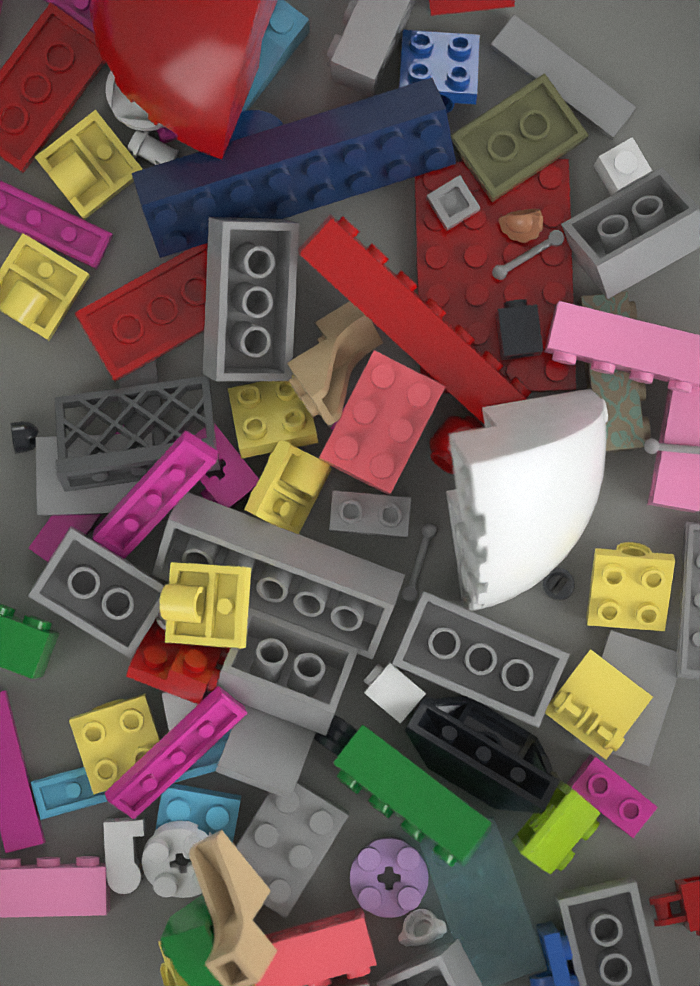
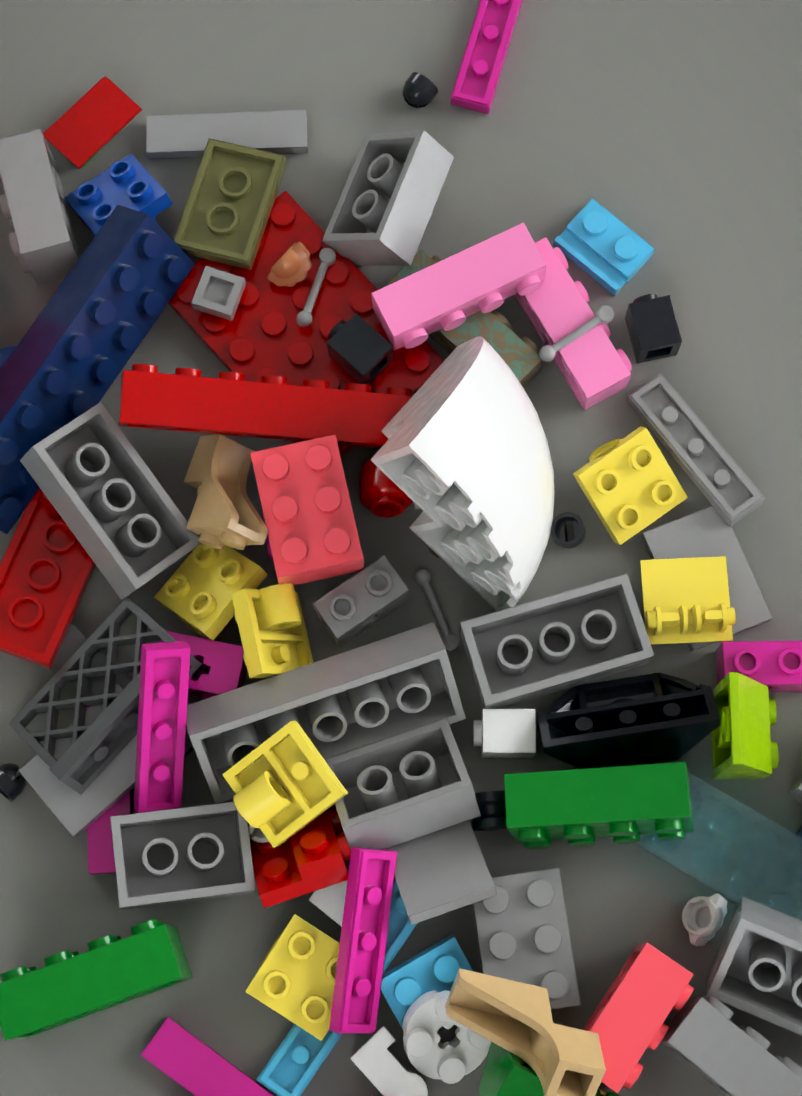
camera: 30 degrees left, 10 degrees down
(372, 894) = (612, 895): lavender plate -> none
(622, 166) = (332, 160): white brick -> none

